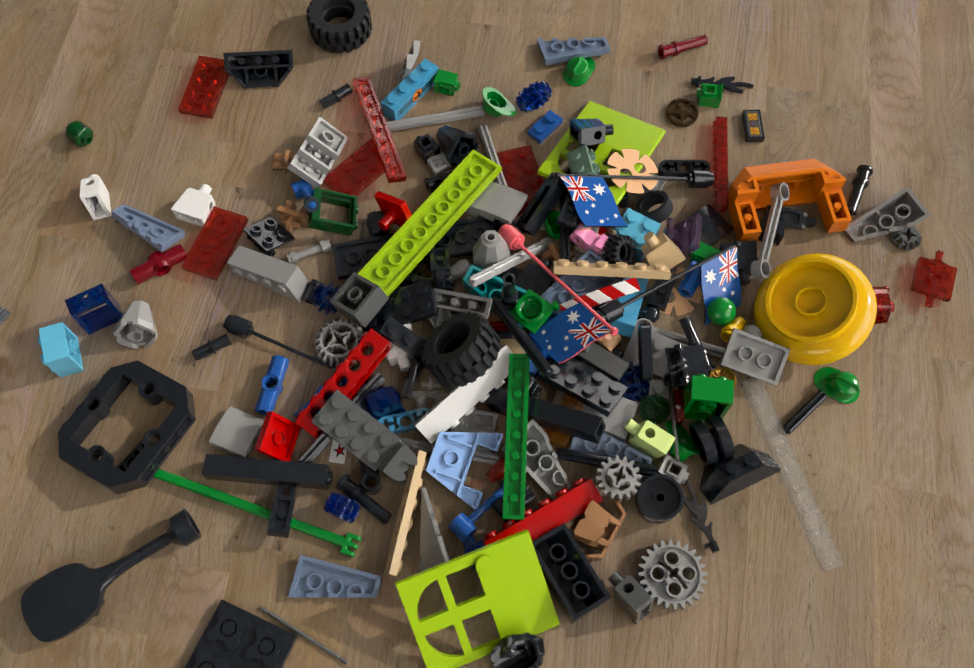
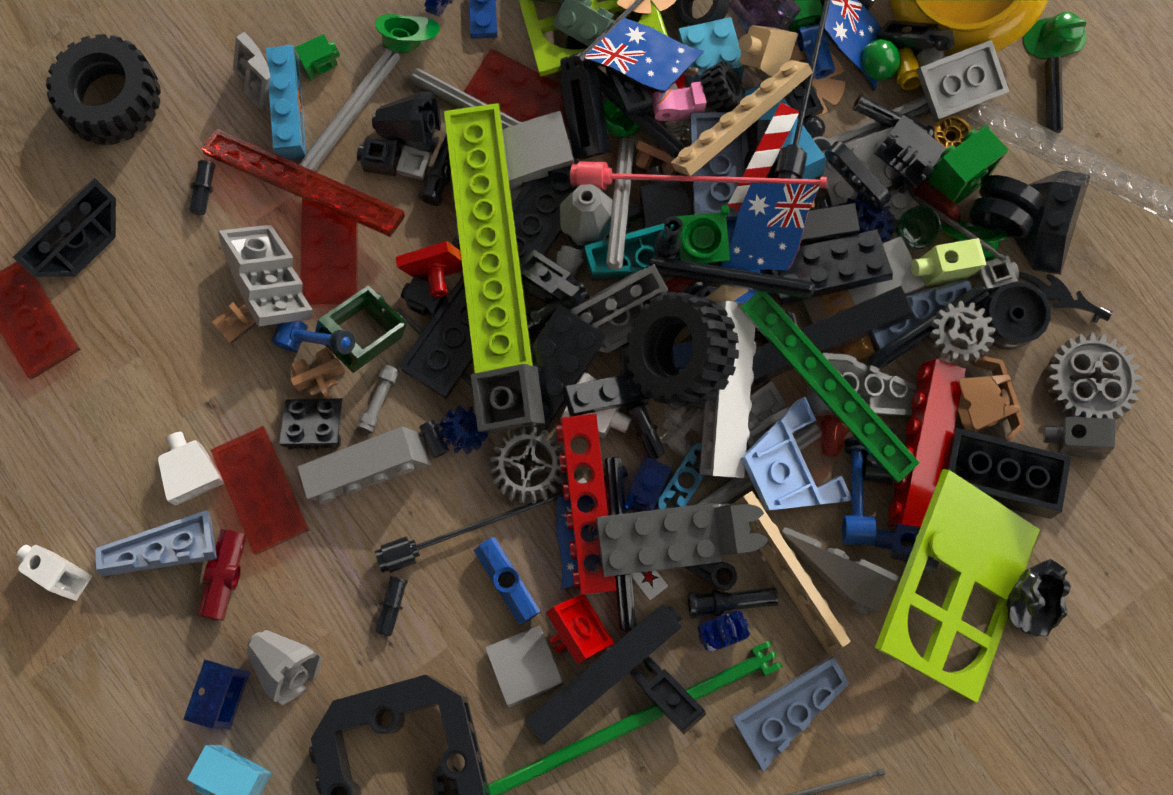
camera: 45 degrees left, 10 degrees up
(752, 314) = (917, 35): none -> black hinge

